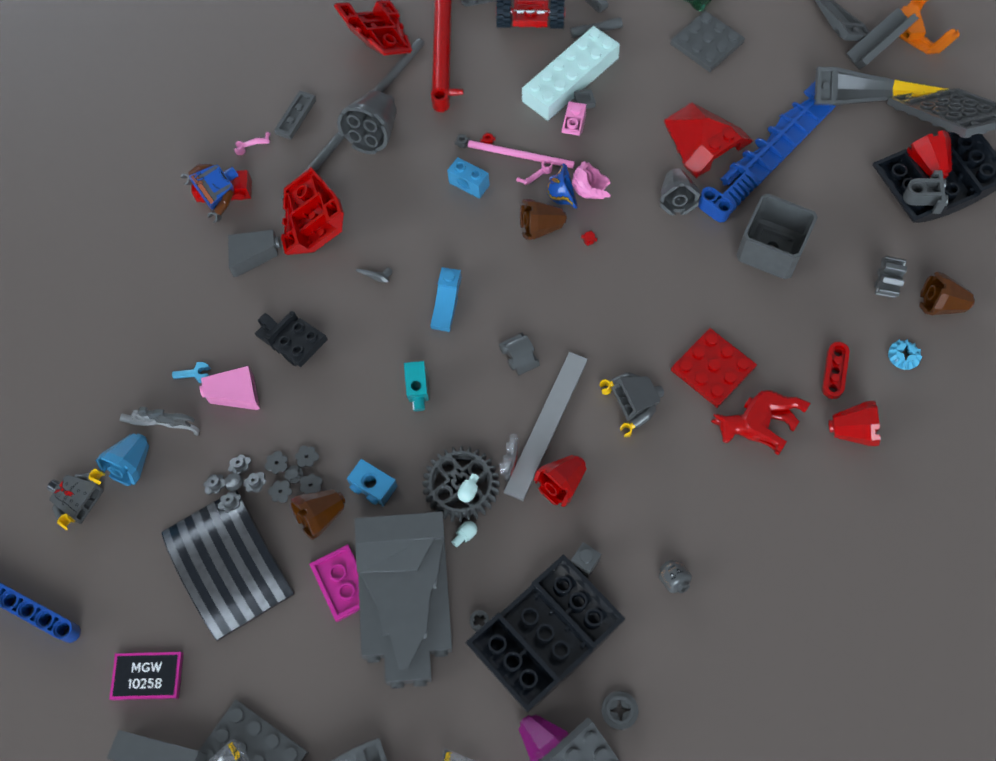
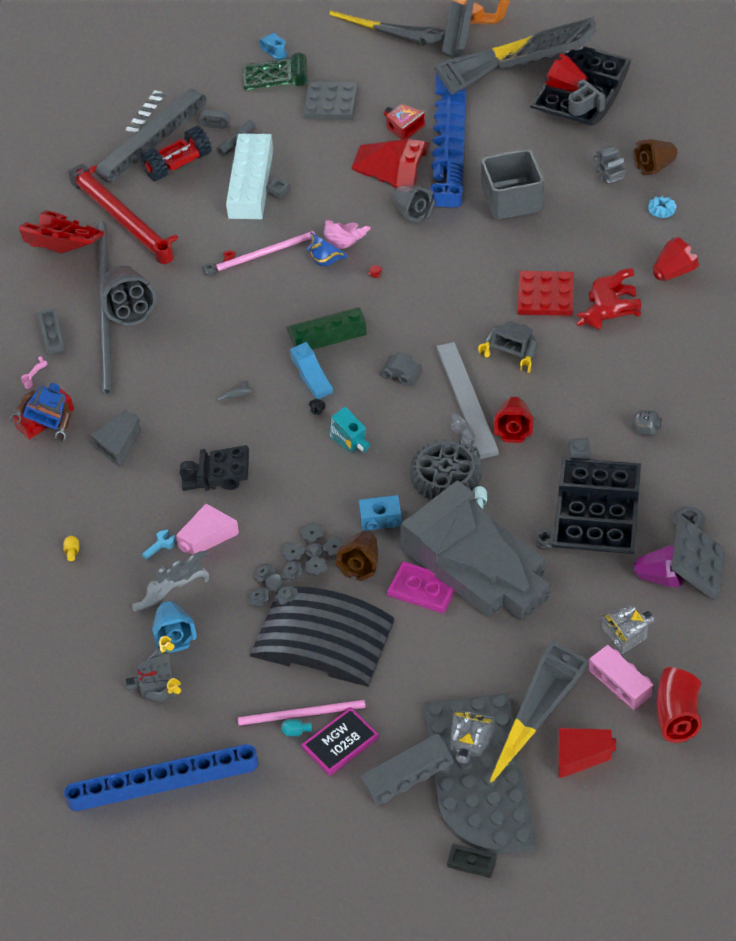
camera: 40 degrees left, 15 degrees down
(126, 633) = (294, 727): none -> teal cylinder
(131, 324) = (71, 547): none -> yellow cylinder
(147, 622) = (302, 712): none -> bright pink piece
(311, 214) = (145, 378): red wedge -> none
(421, 337) = (317, 406): none -> black piece
(468, 177) = (244, 286): dark azure brick -> none
(468, 488) = (458, 461): light aqua cylinder -> none
(497, 266) = (329, 329): none -> dark green slope
(540, 218) = (327, 279): reddish brown cone -> none
(544, 170) = (294, 250): bright pink piece -> none
(574, 118) = (285, 201): bright pink slope -> none
(749, 103) = (404, 121): none -> red torso
(837, 363) = (628, 242): red plate -> none

